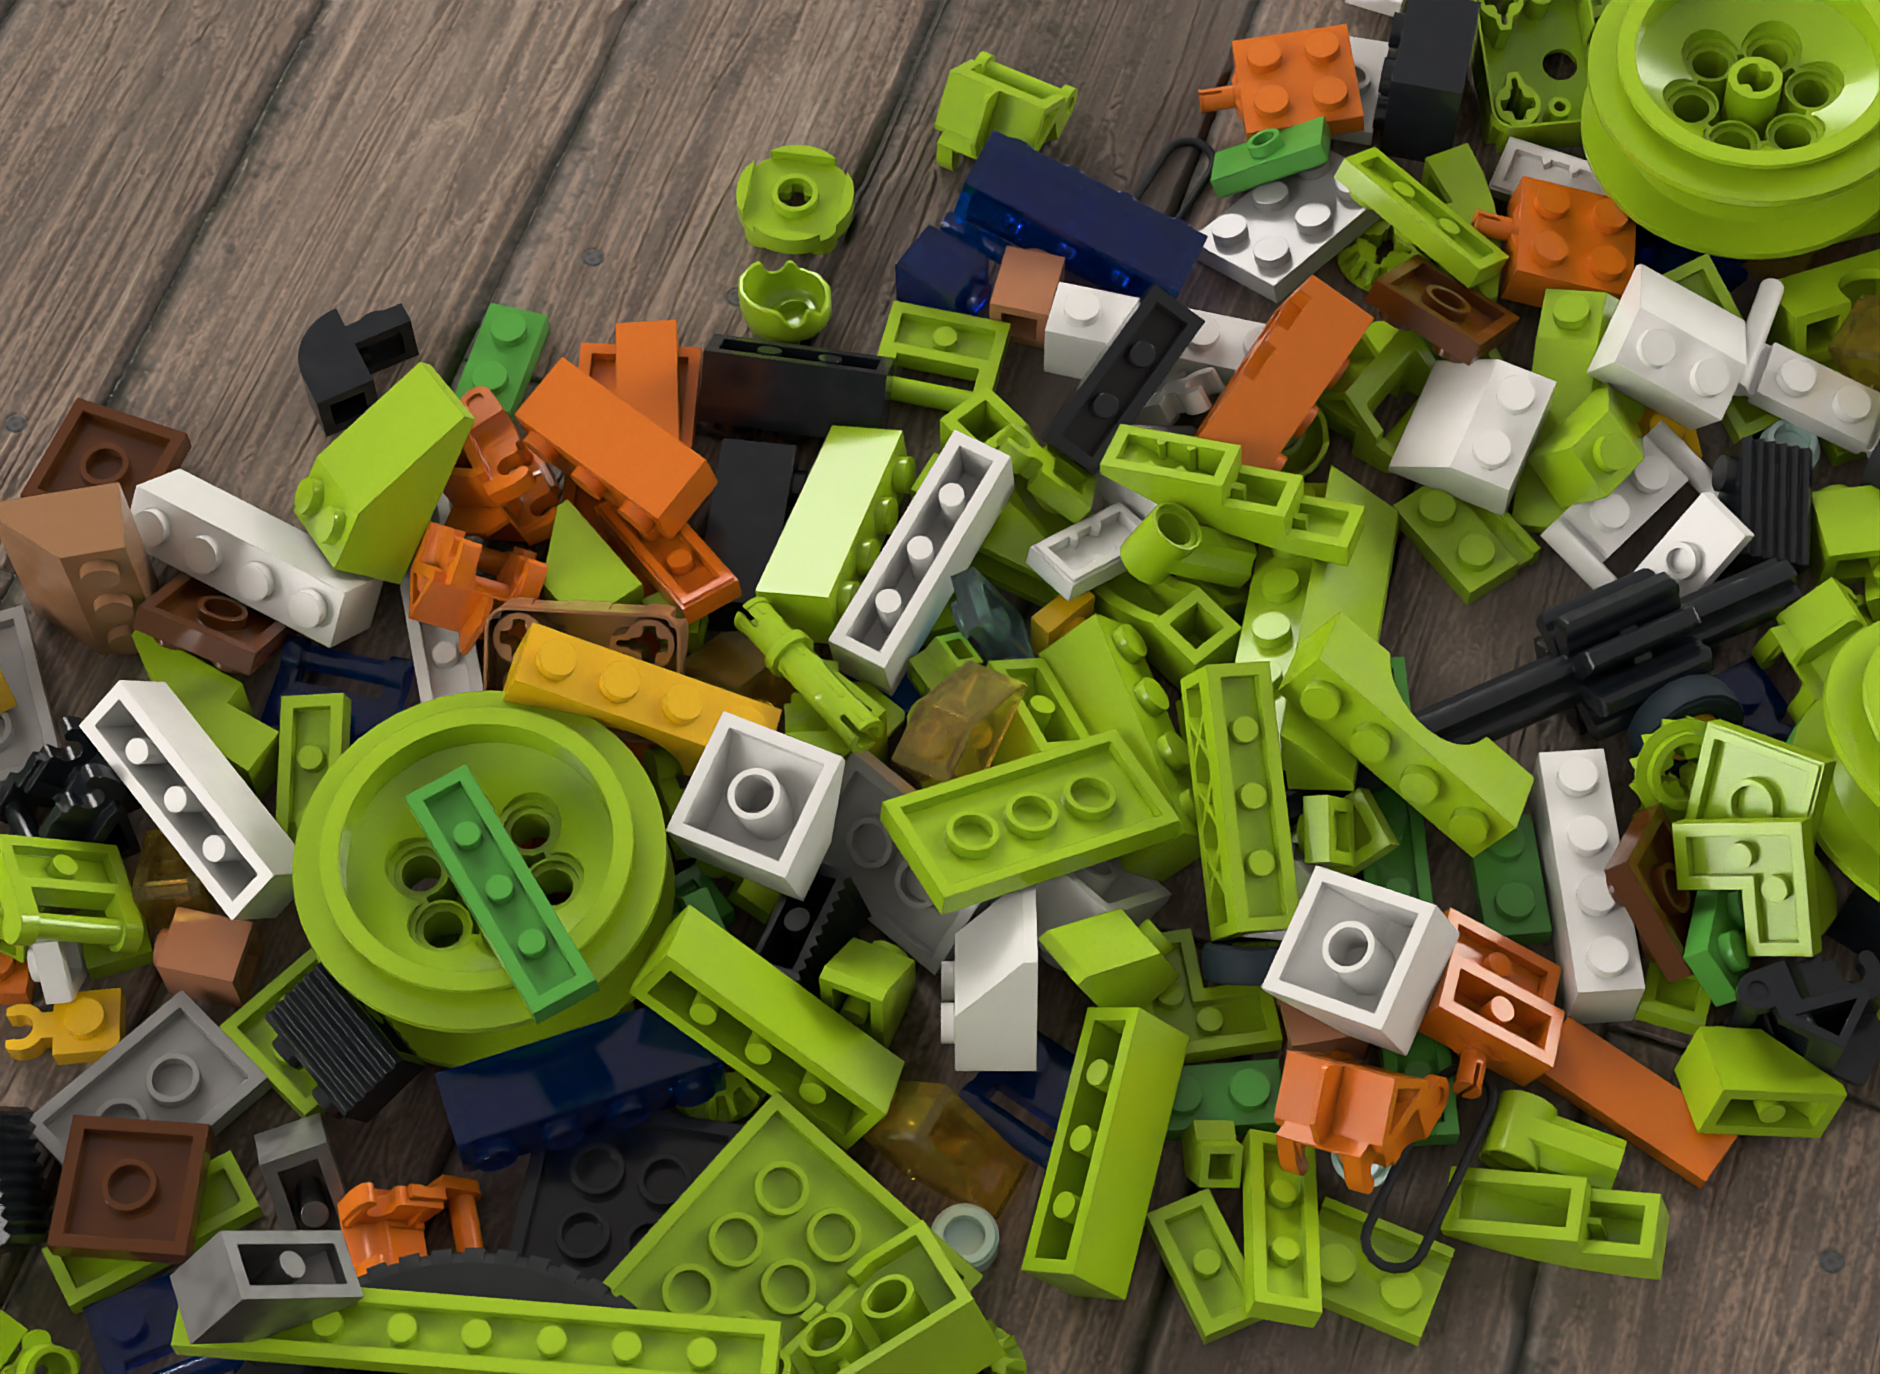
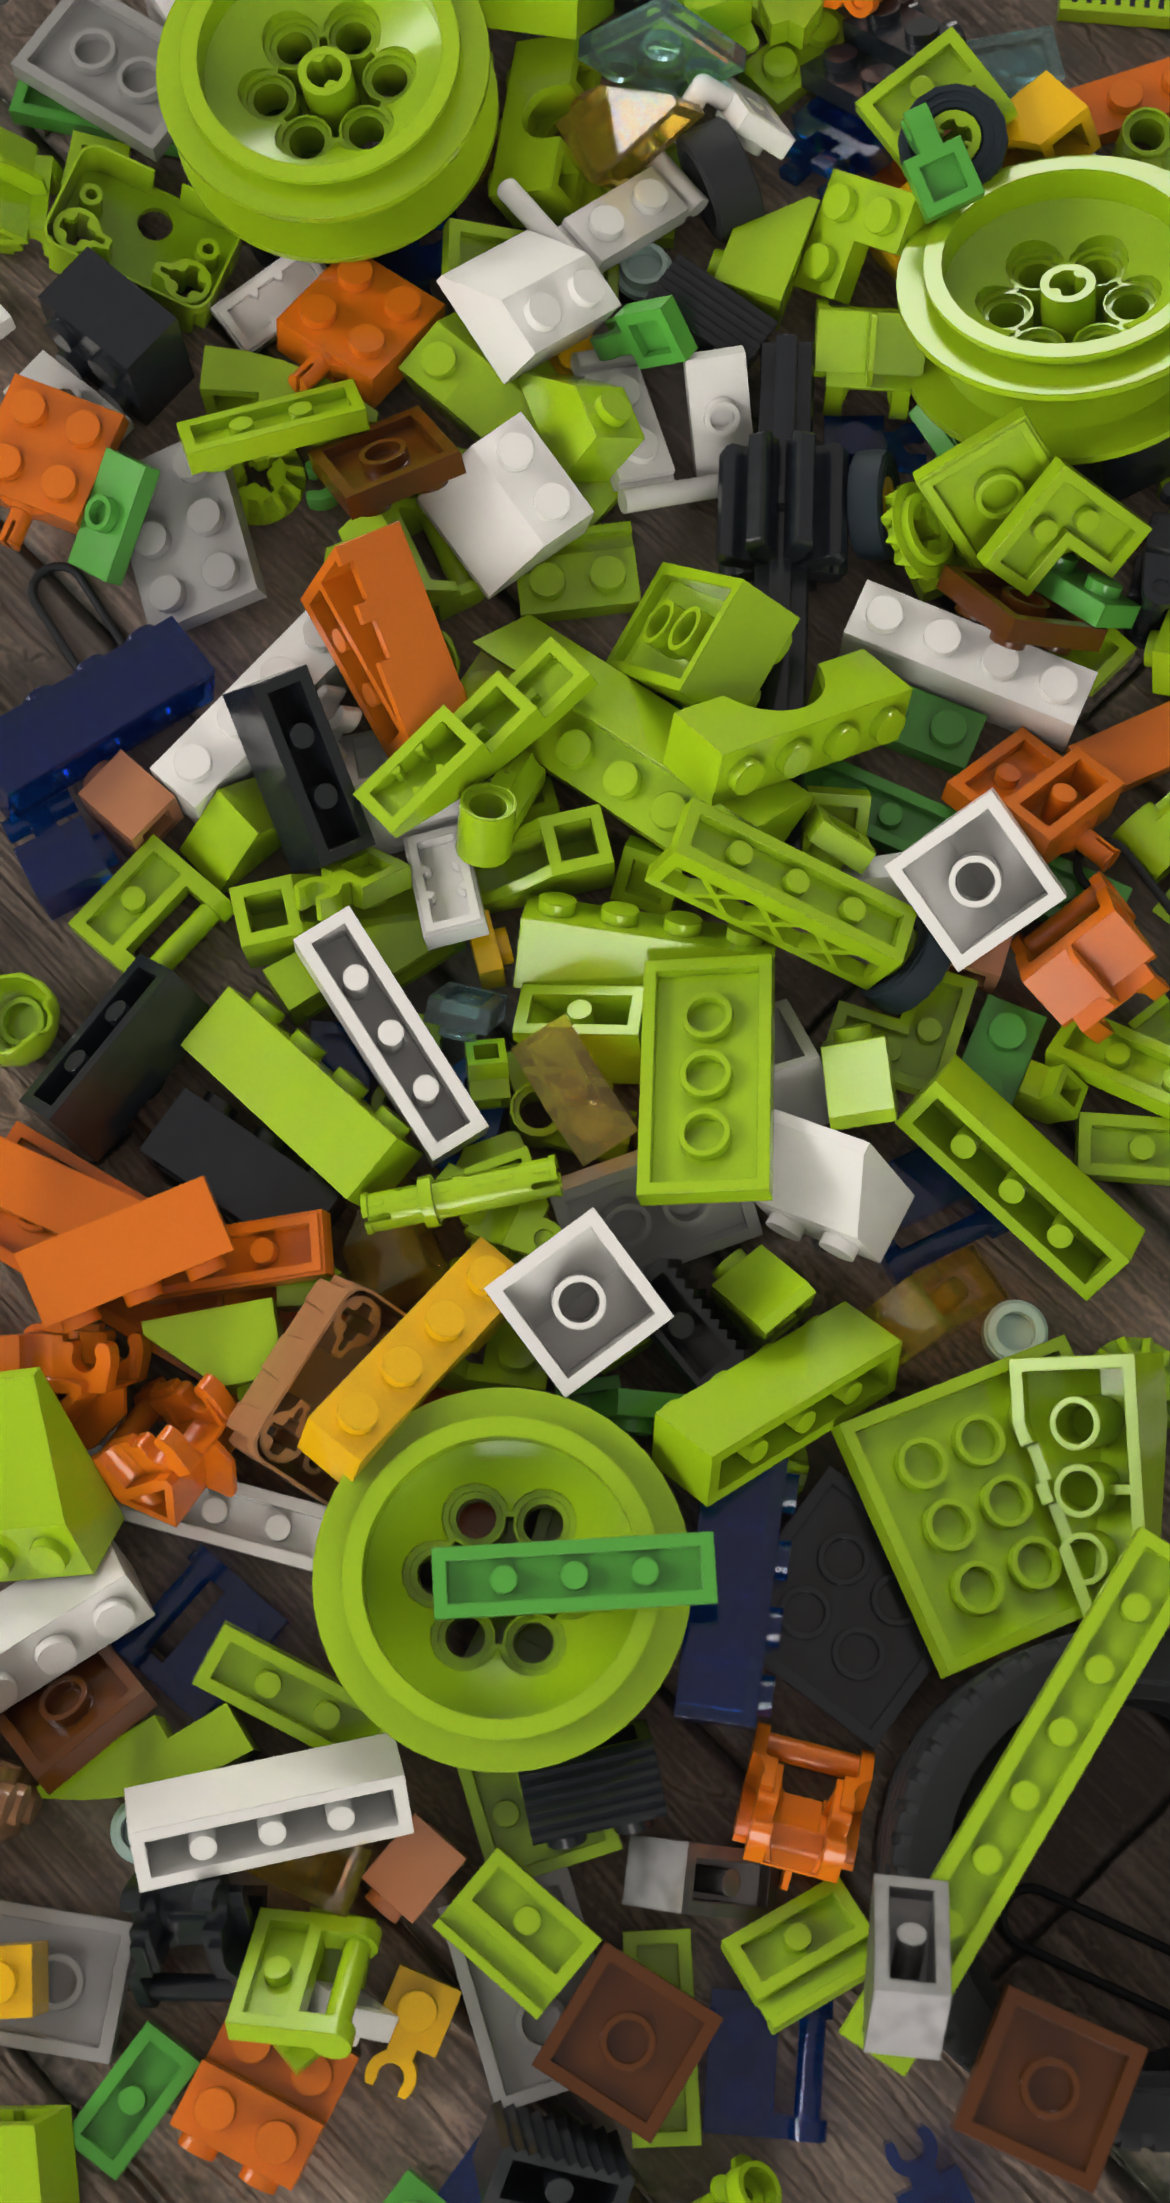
camera: 60 degrees left, 15 degrees up
(186, 1053) = (517, 1932): none -> lime plate
(1044, 380) = (231, 835): none -> lime slope
(1449, 643) = (703, 637): none -> lime slope
(1711, 453) = (649, 331): none -> bright green plate

